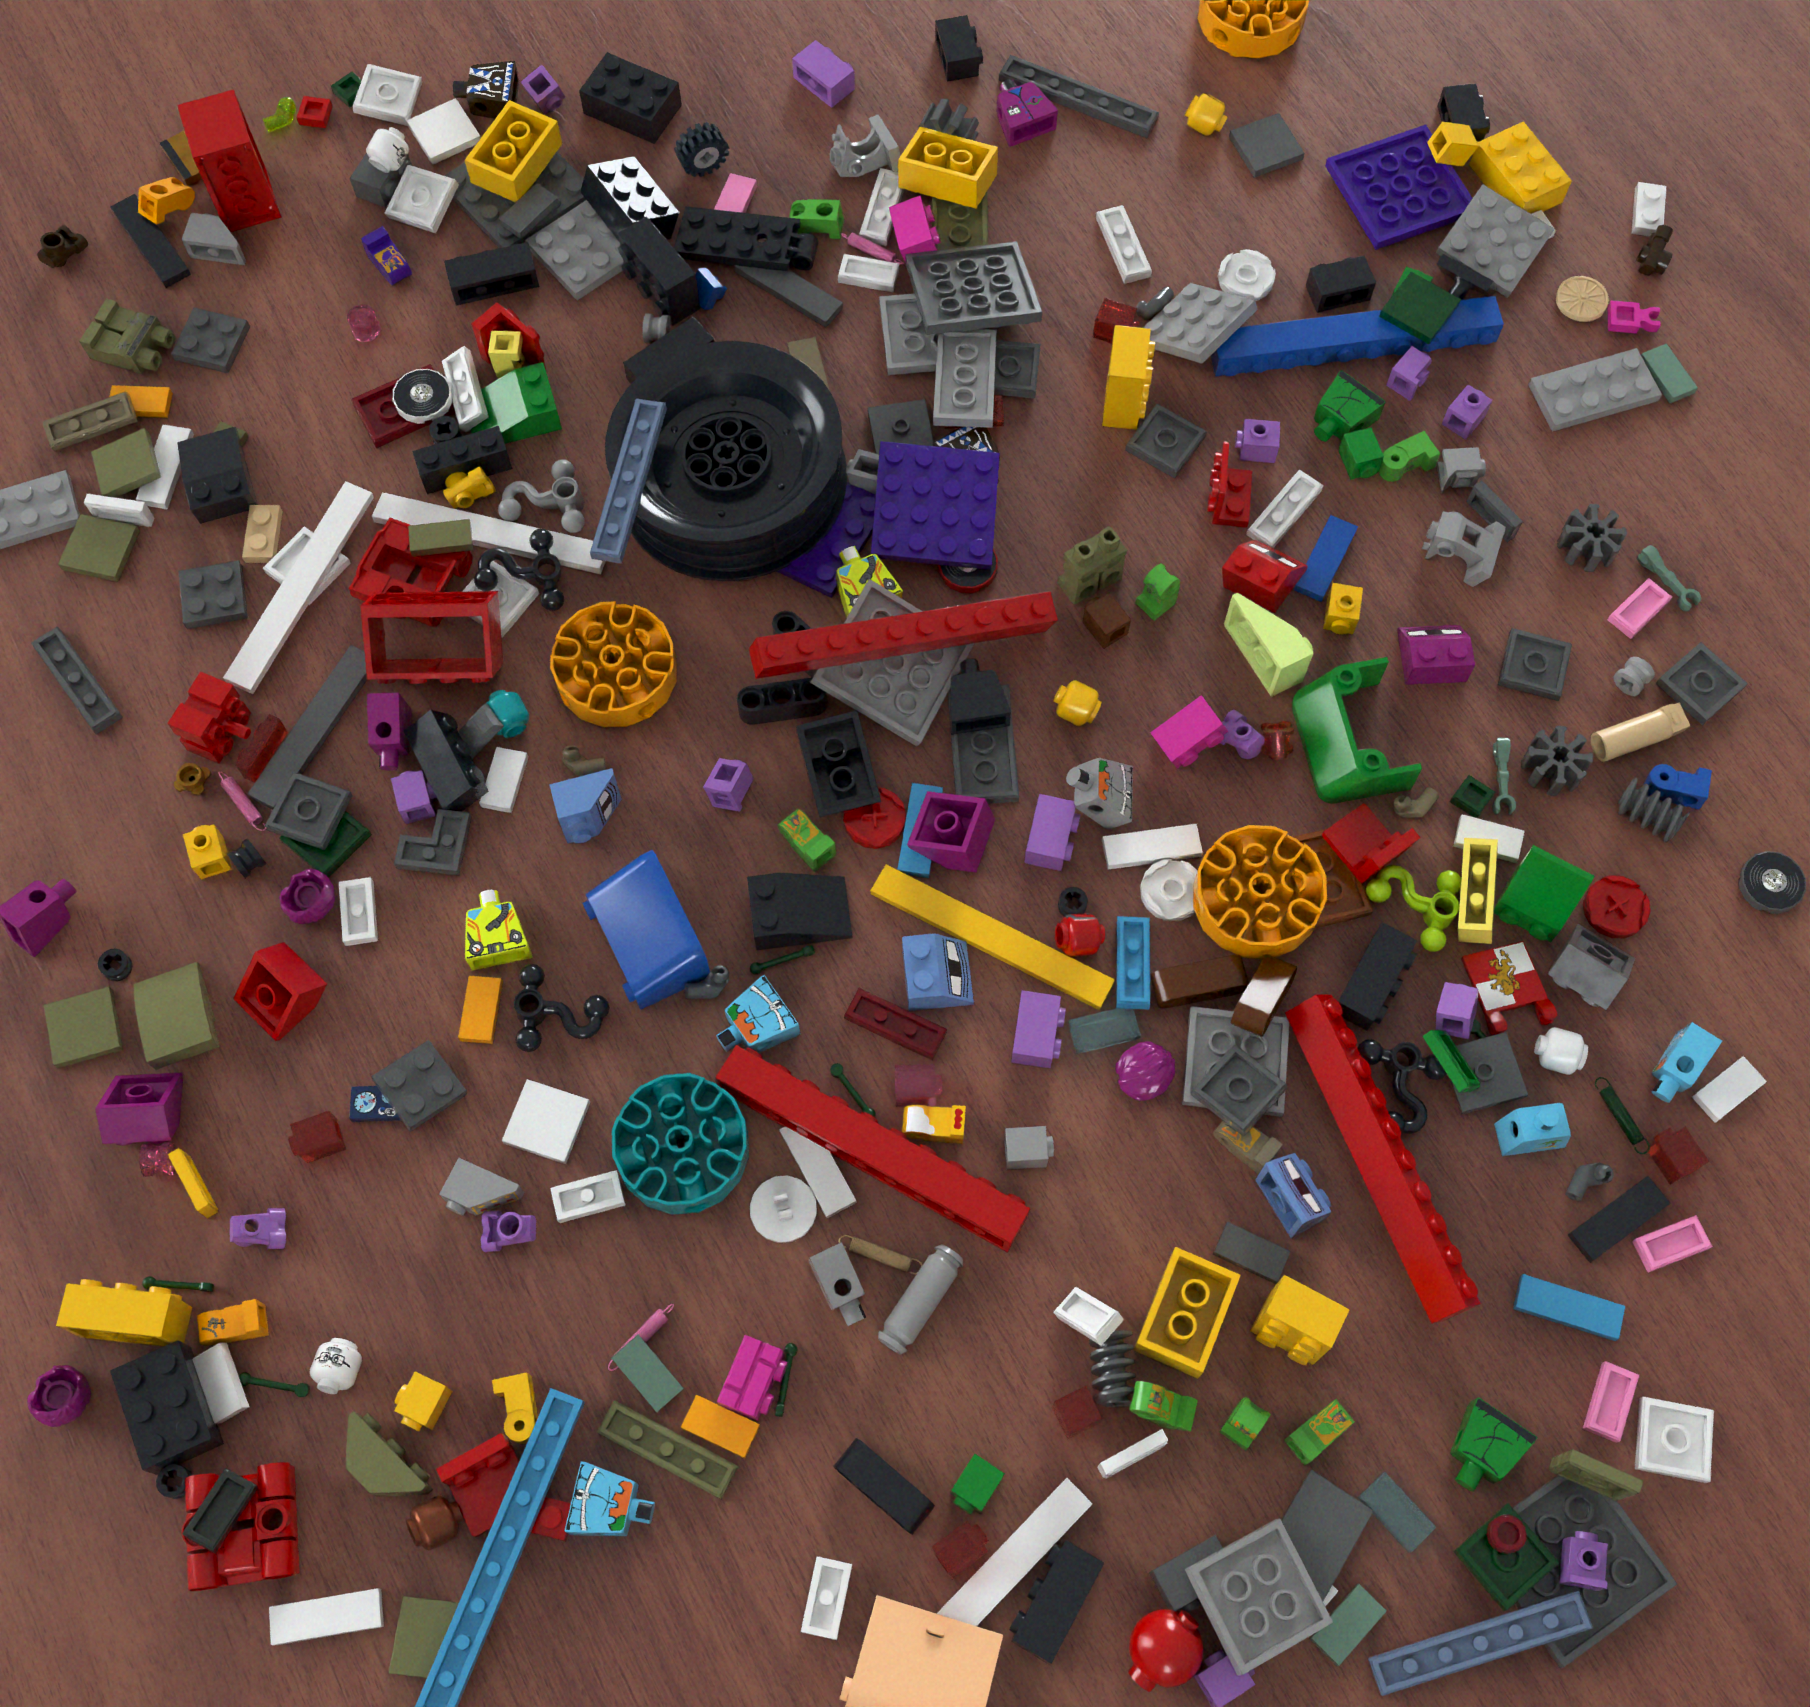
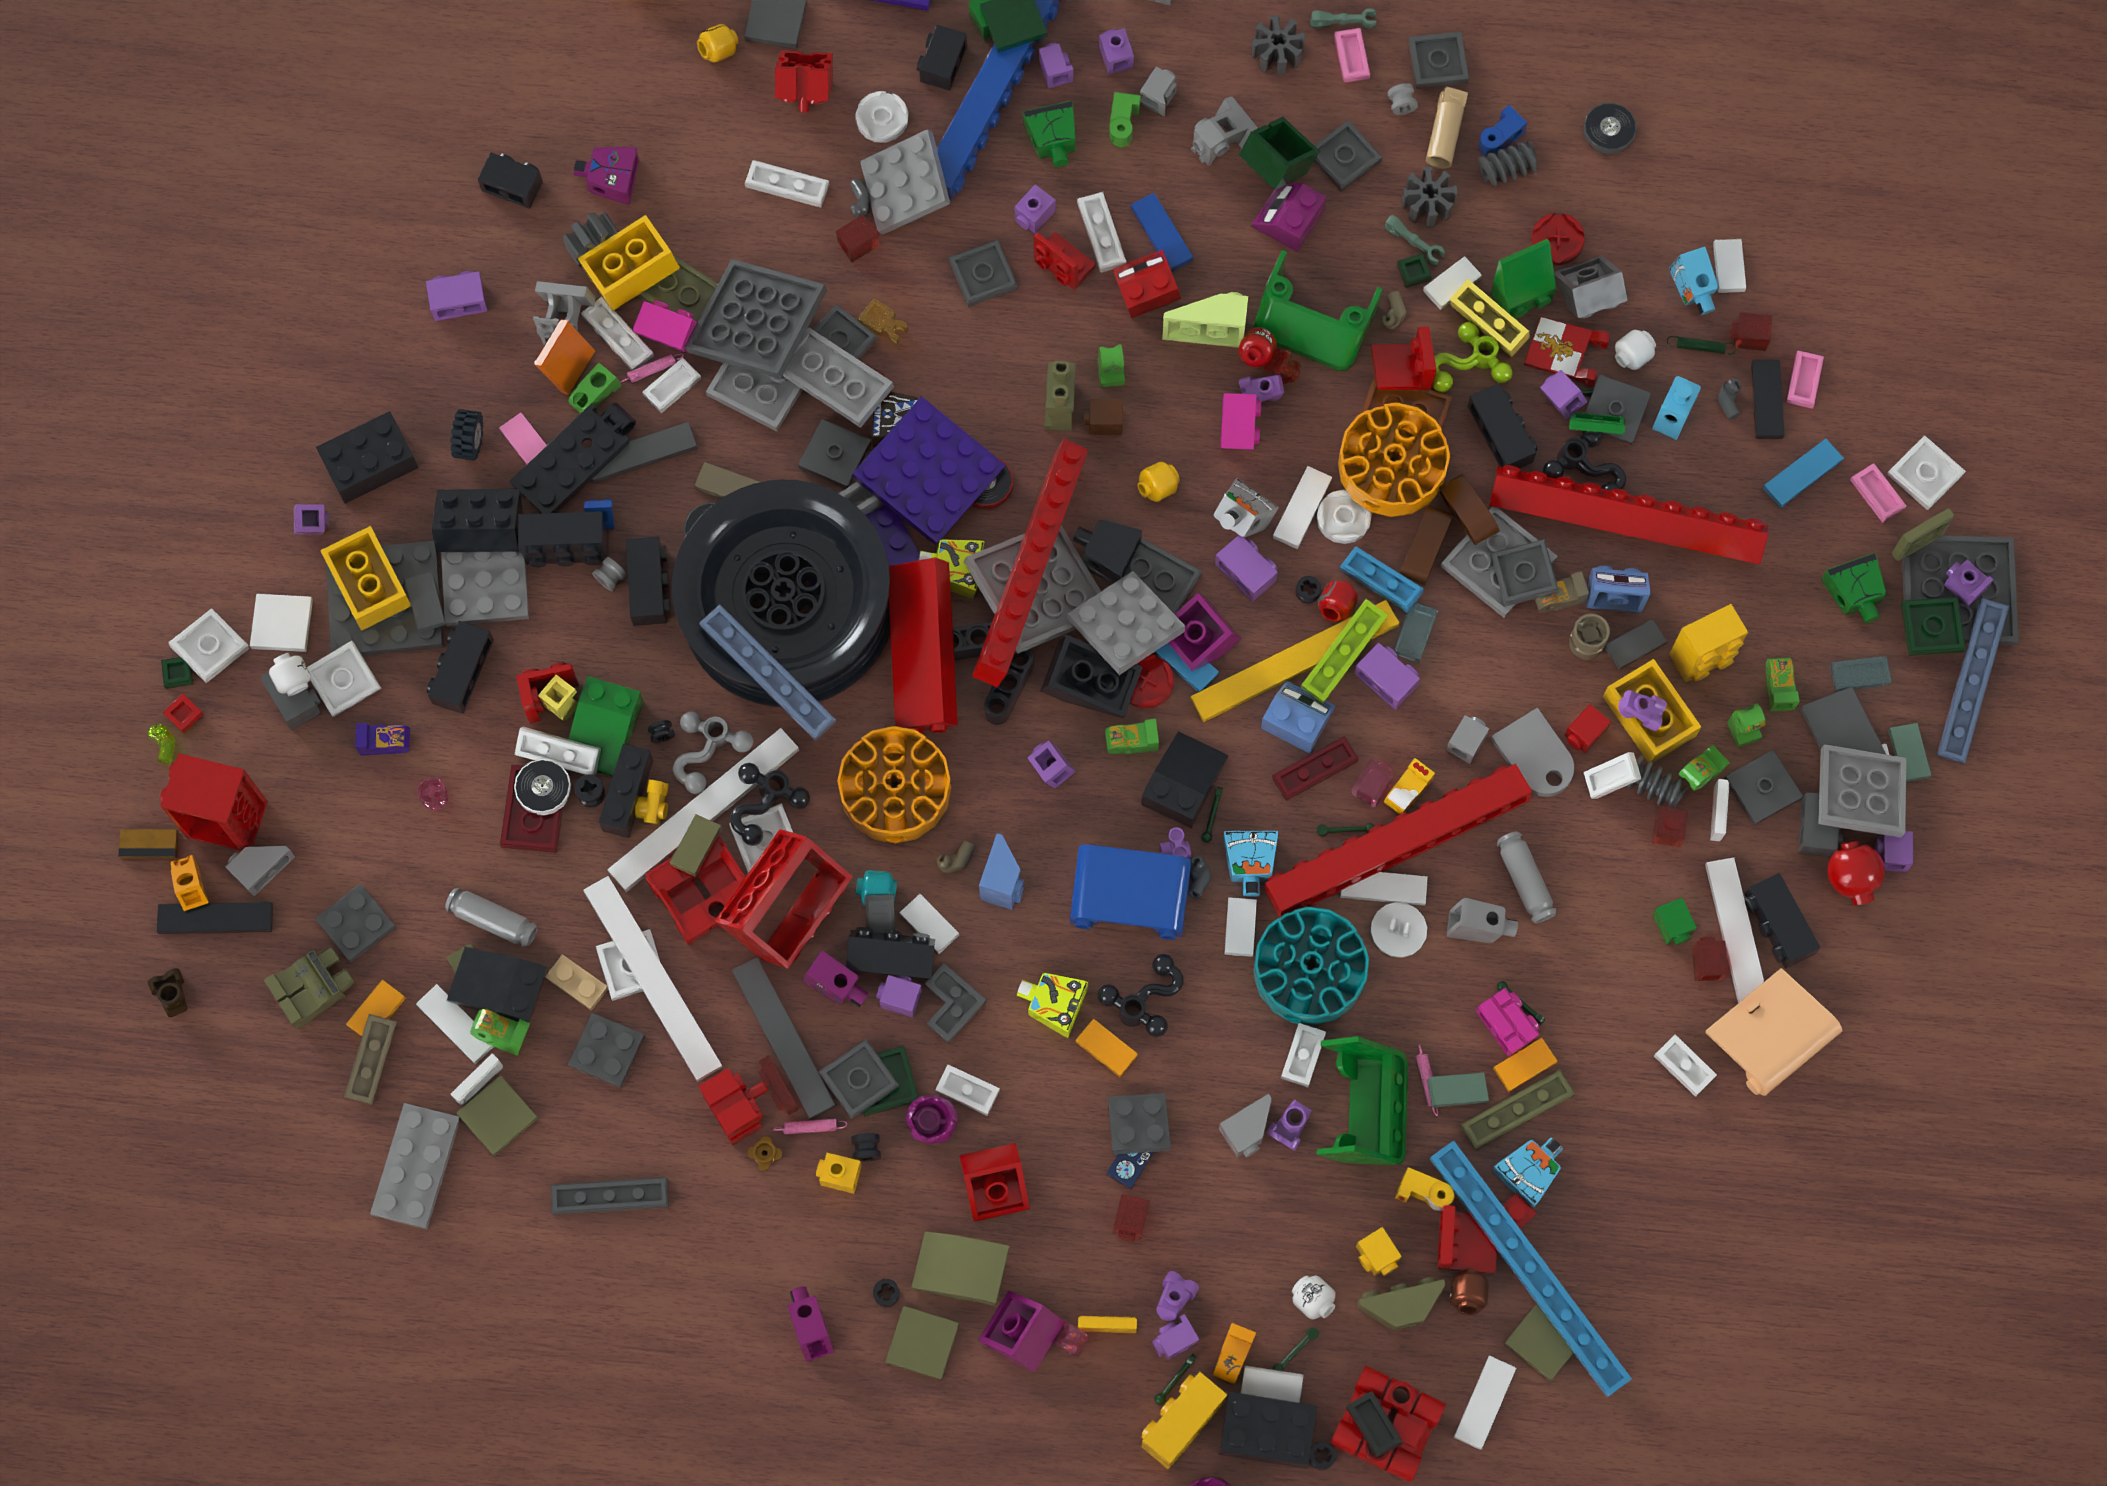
camera: 55 degrees left, 5 degrees up
(126, 464) = (435, 1052): olive tile -> none
(173, 499) = (499, 1031): none -> bright green leg
(216, 1257) = (1175, 1338): none -> medium lavender brick
(277, 431) = (491, 917): none -> light grey axle
(489, 88) = (272, 561): dark brown torso -> none
(538, 454) = (661, 731): none -> black bush
(546, 1121) = (1225, 1052): white tile -> none
(576, 1305) = (1375, 1105): none -> green windscreen
(685, 1053) = (1240, 927): none -> white tile
(718, 943) = (1176, 845): none -> medium lavender plate
(760, 601) = (922, 646): none -> red brick
(826, 172) = (564, 357): none -> orange tile
(880, 1254) = (1476, 884): tan piece -> none
(884, 1486) = (1636, 982): black beam -> none
(909, 756) = (1126, 622): none -> light grey plate
(1030, 971) = (1344, 651): none -> lime plate
(1054, 388) = (880, 318): none -> clear yellow plate
(1061, 1224) = (1536, 751): none -> light grey tile
(1082, 96) = (623, 122): dark grey tile -> none
(1122, 1259) = (1587, 729): none -> red brick
(1128, 377) = (924, 263): yellow brick -> none
(1145, 1071) = (1466, 624): magenta hair -> none
(1178, 1302) = (1643, 708): none -> medium lavender plate
(1193, 1487) = (1763, 787): none -> dark grey plate
(1221, 1197) = (1589, 636): none -> dark tan wheel
(1226, 188) = (803, 77): none -> red brick
(1277, 703) = (1257, 347): none -> red head
(1343, 608) = (1213, 250): yellow brick -> none
(1361, 453) = (1098, 148): green brick -> none
(1483, 599) = (1279, 153): none -> dark green piece
(1493, 509) = (1208, 93): dark grey tile -> none
(1506, 1534) = (1921, 615): dark red tile -> none

